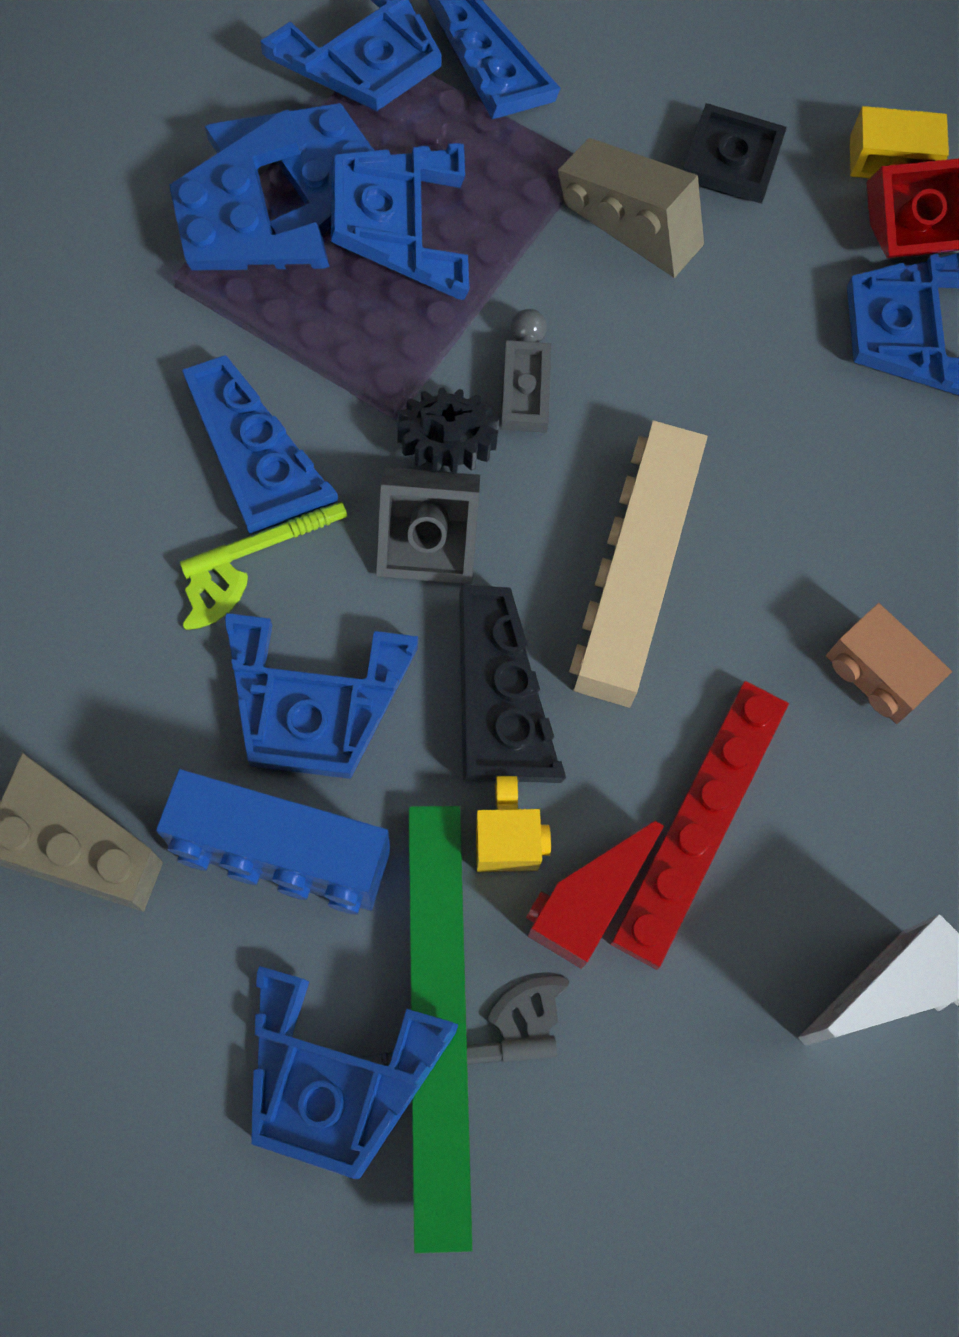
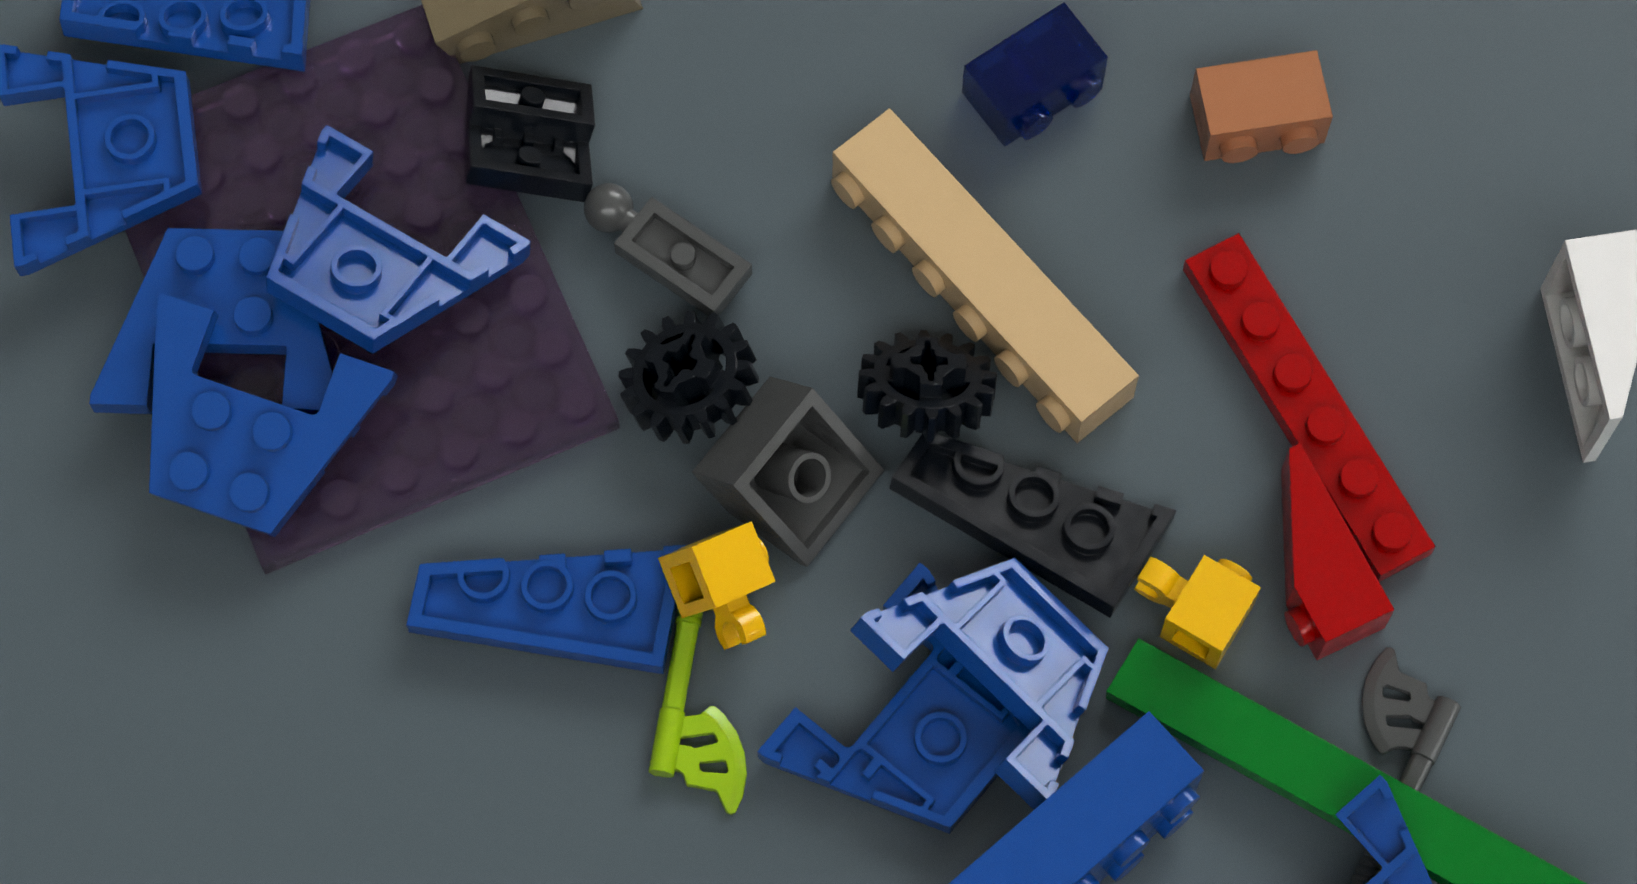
camera: 50 degrees left, 0 degrees up
(328, 521) = (718, 577): none -> yellow brick
(397, 727) = (1017, 646): none -> wing
(539, 569) = (926, 385): none -> black gear
(541, 255) = (528, 134): none -> black slope
(801, 513) = (1035, 75): none -> clear blue brick

